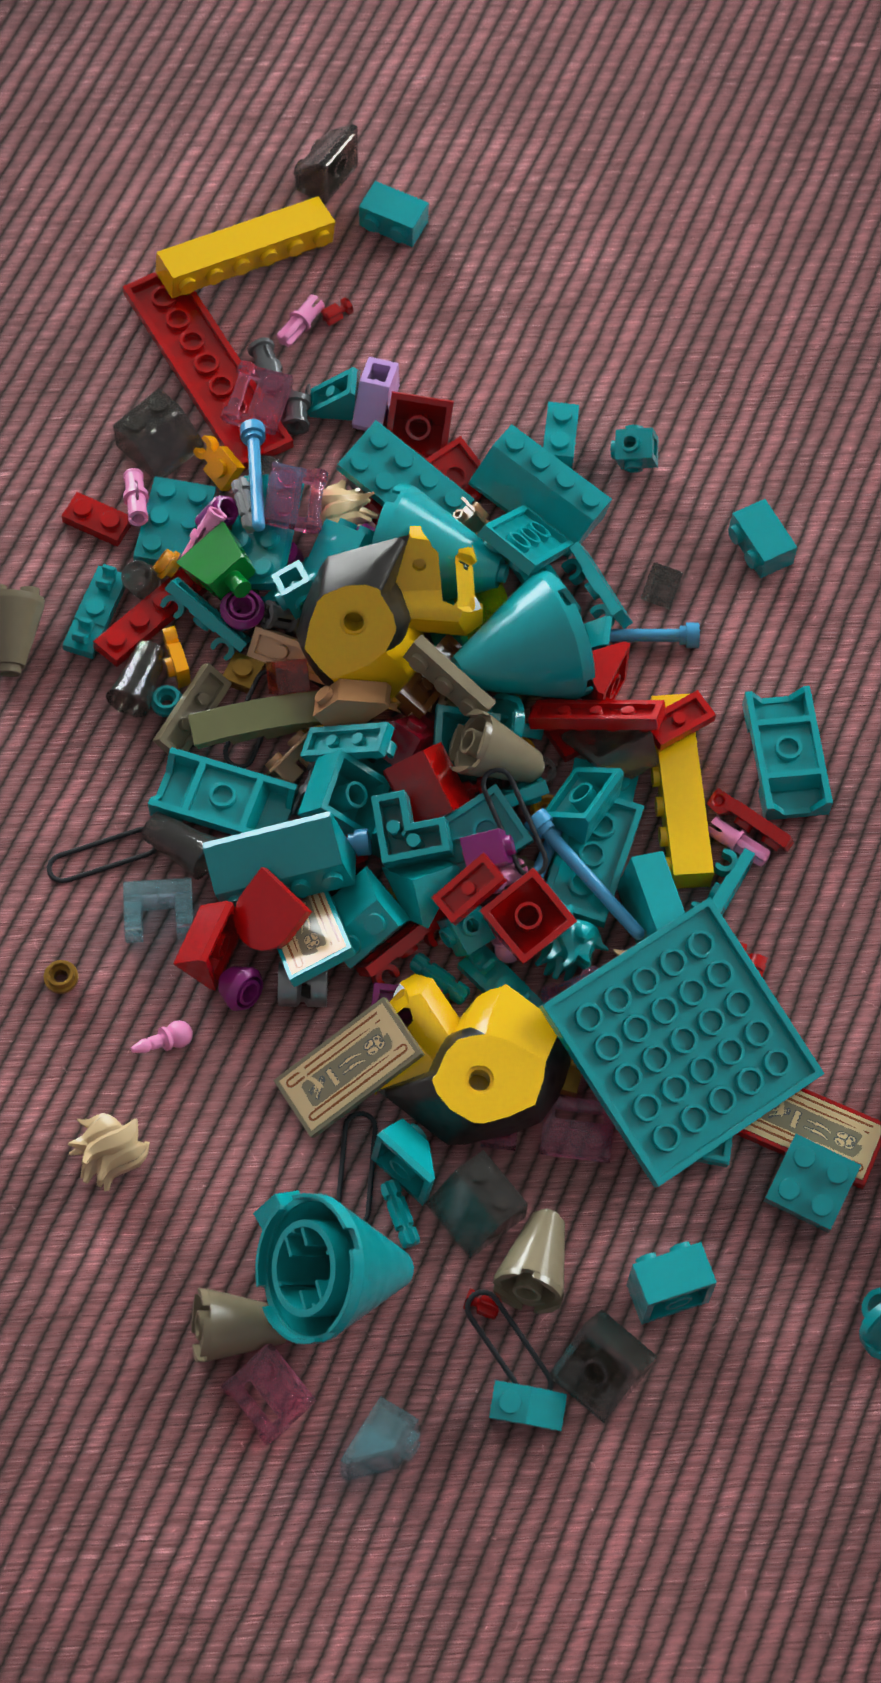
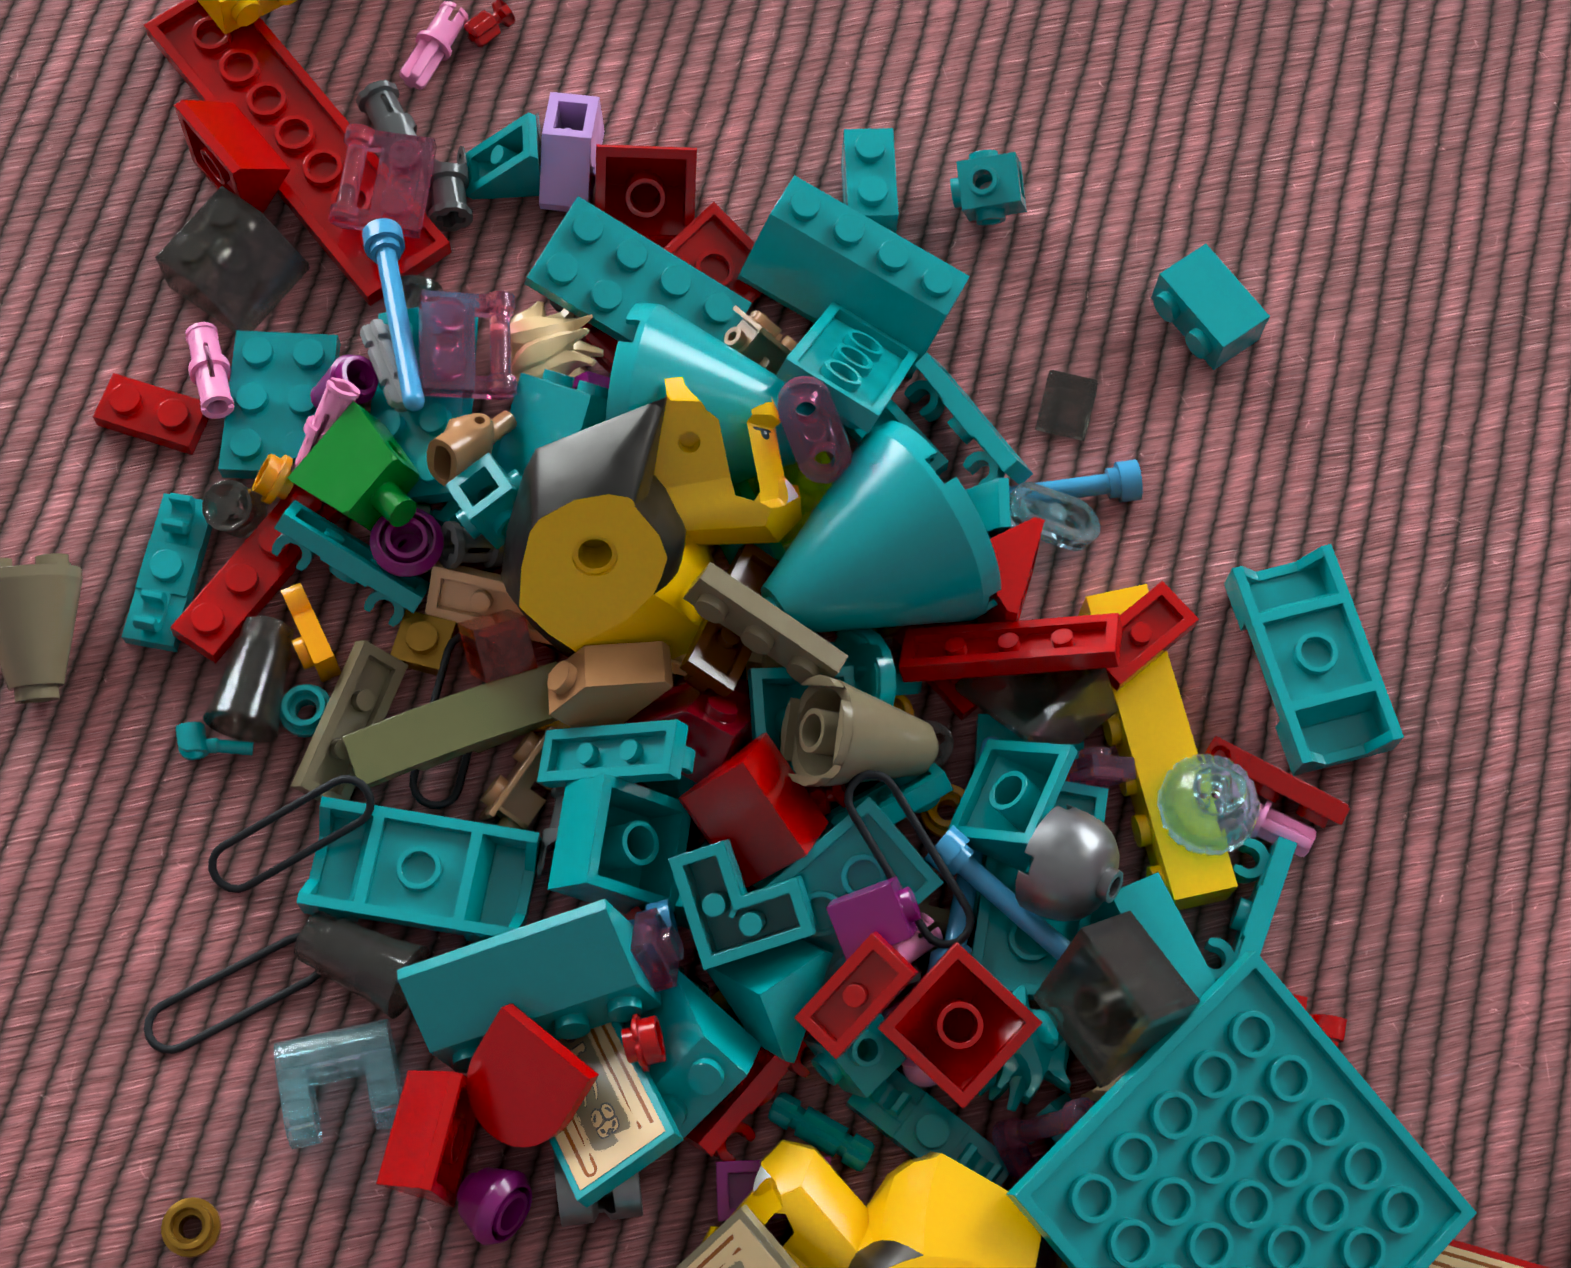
camera: 10 degrees left, 5 degrees up
(97, 711) = (194, 743): none -> teal hand
(143, 754) = (212, 861): none -> black piece
(166, 368) = (231, 150): none -> red slope
(221, 463) = (341, 296): light orange plate -> none
(286, 552) = (465, 442): none -> medium nougat piece
(341, 899) = (644, 1041): none -> red plate
(357, 851) = (657, 949): none -> plate
(495, 570) = (816, 431): none -> clear pink plate
(608, 837) = (1071, 866): none -> flat silver cylinder
(621, 910) = (1114, 996): none -> clear smoke slope
(642, 793) = (1100, 768): none -> clear pink plate
(644, 649) = (1067, 519): none -> clear light blue plate
(701, 831) = (1201, 820): none -> clear light blue hair

